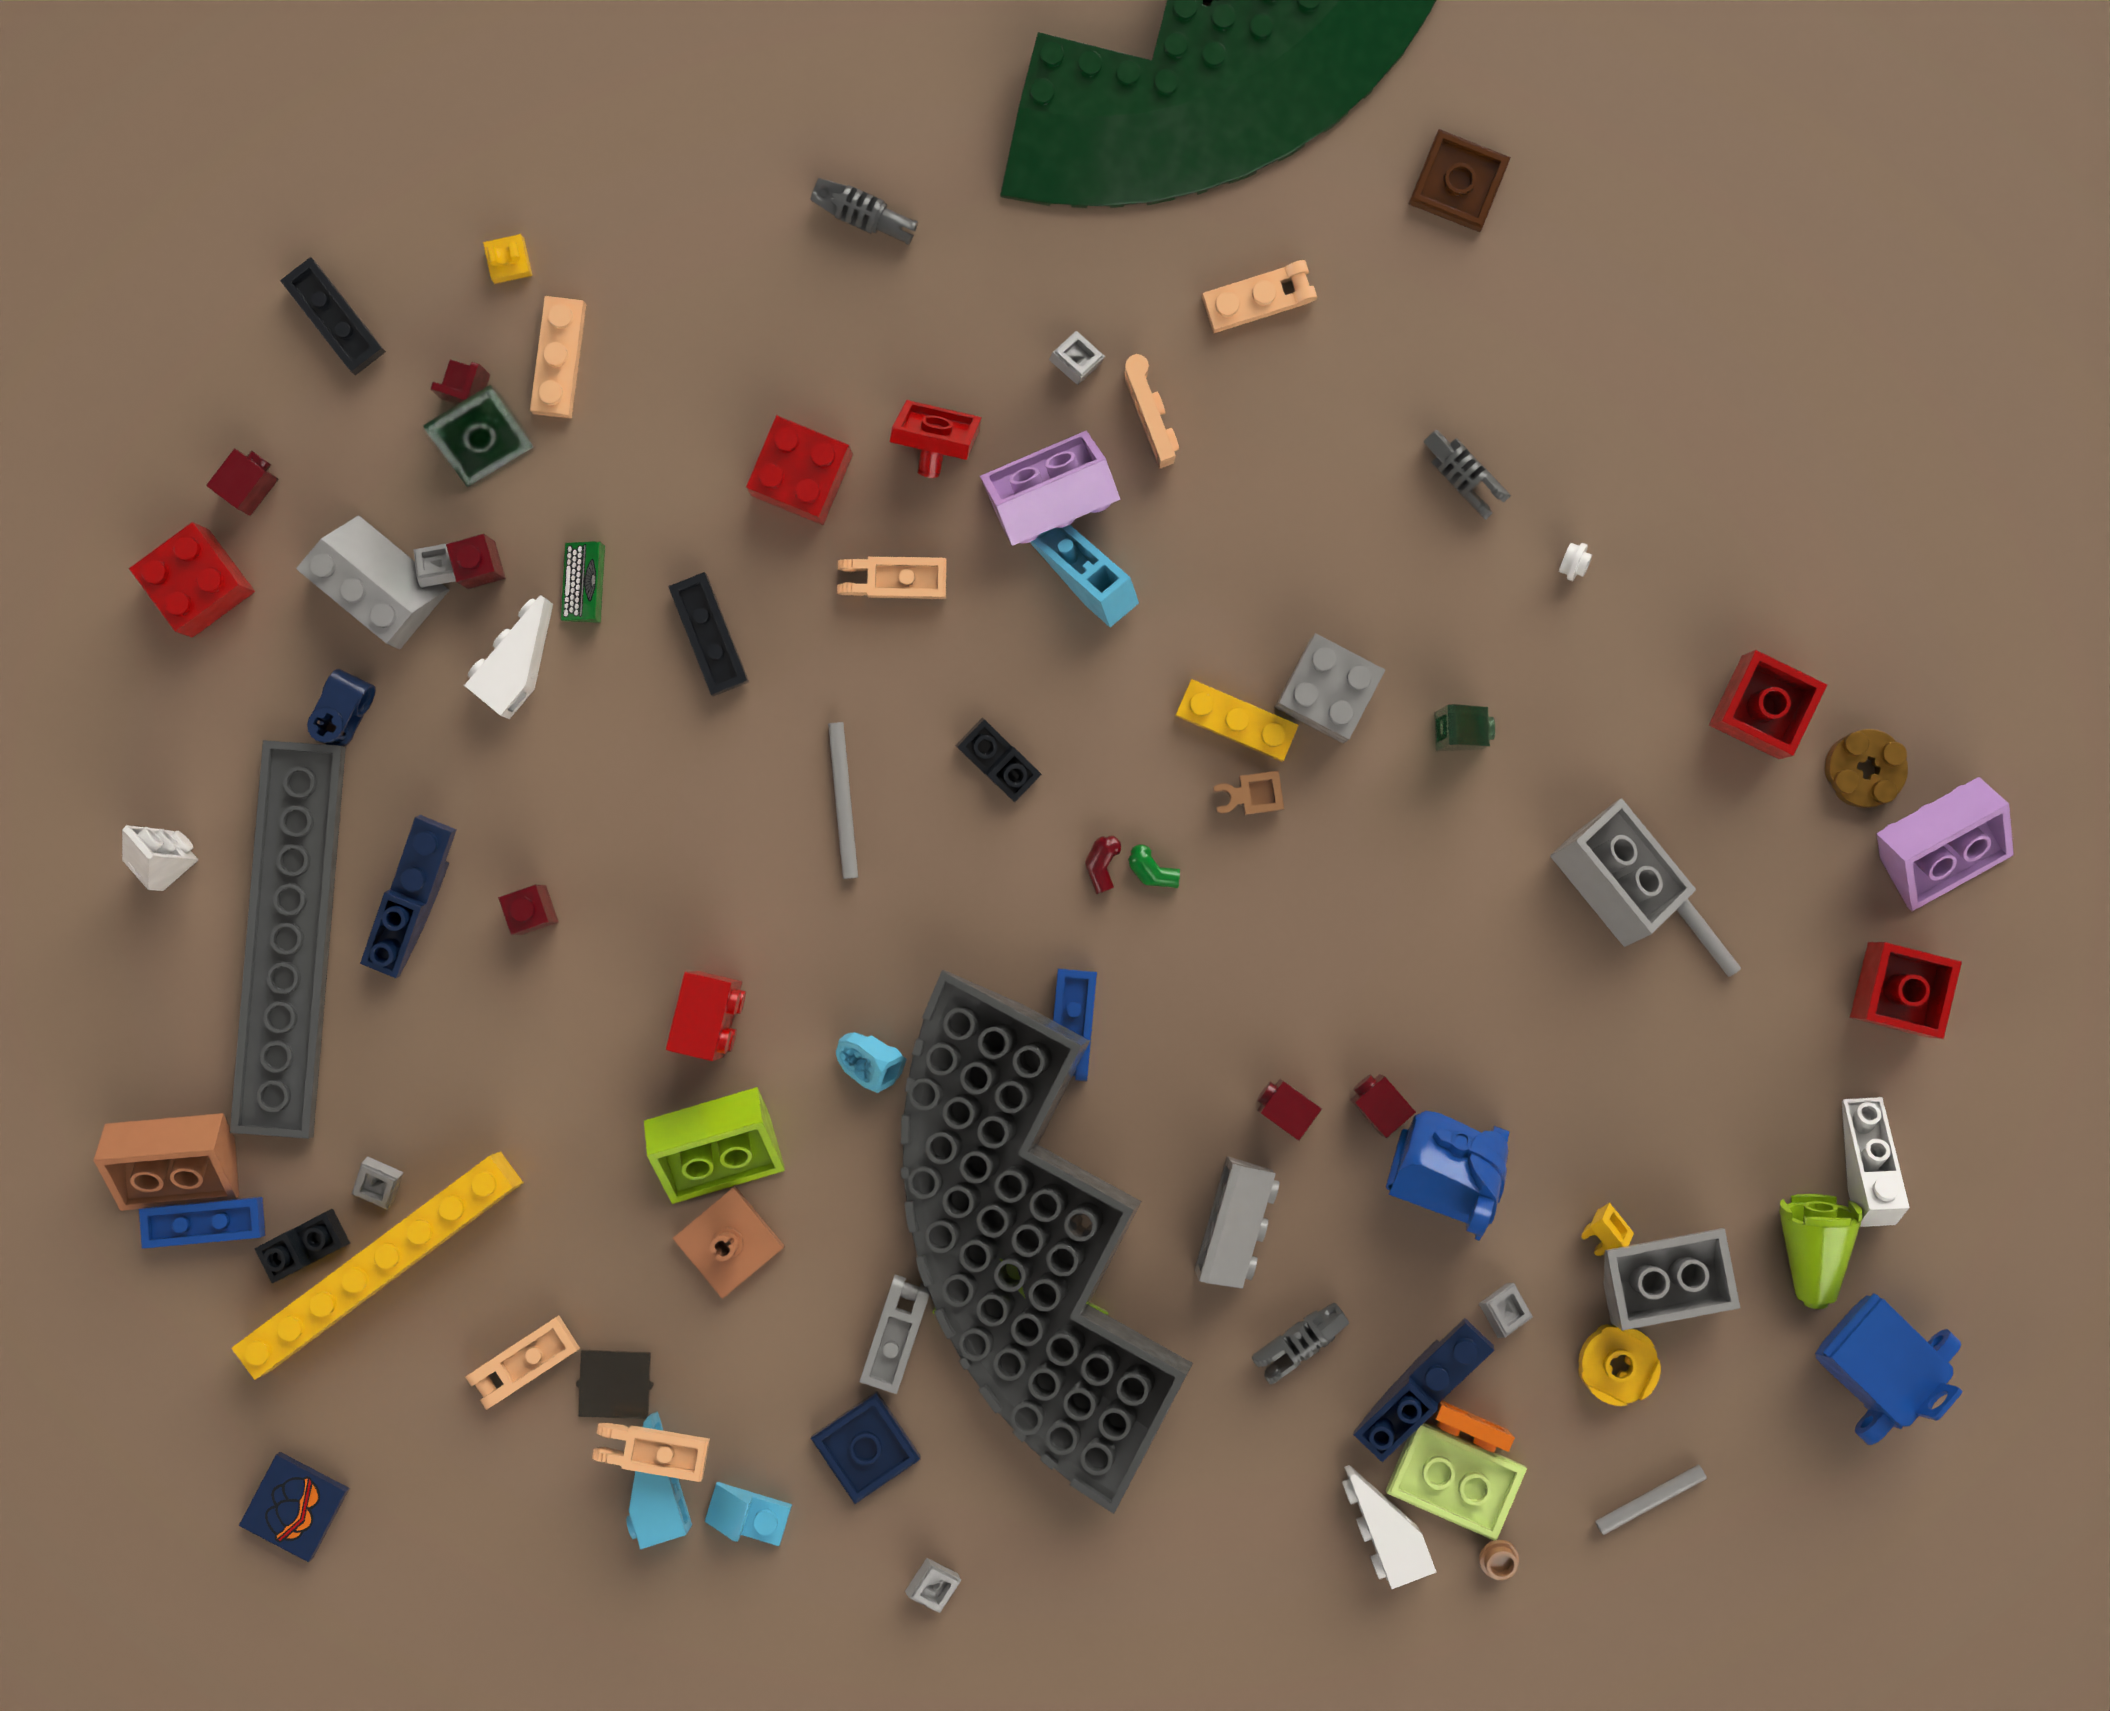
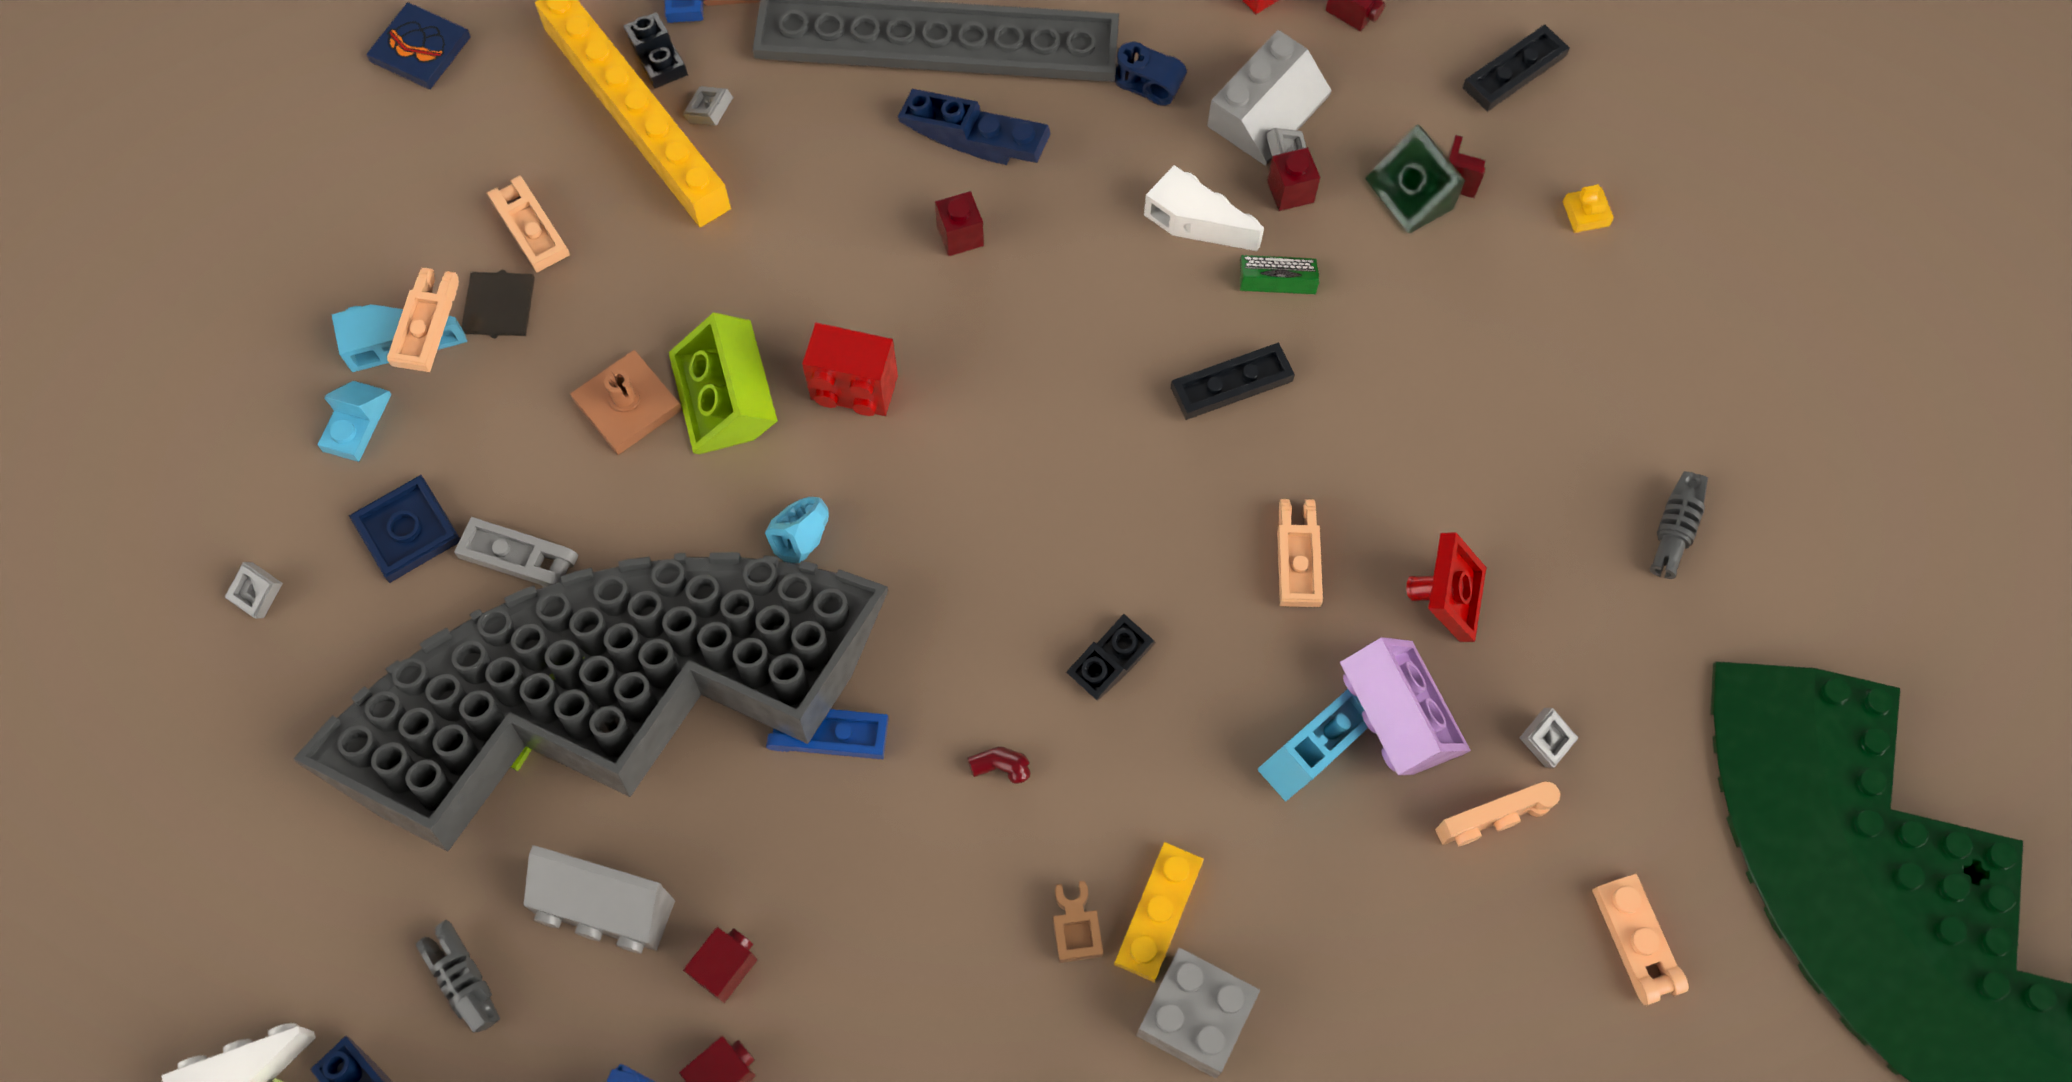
camera: 90 degrees right, 20 degrees down
(558, 357) = (1497, 252): light nougat plate -> none
(799, 470) = (1404, 461): red brick -> none
(843, 800) = (1067, 506): light grey piece -> none
(1149, 872) = (989, 813): green arm -> none

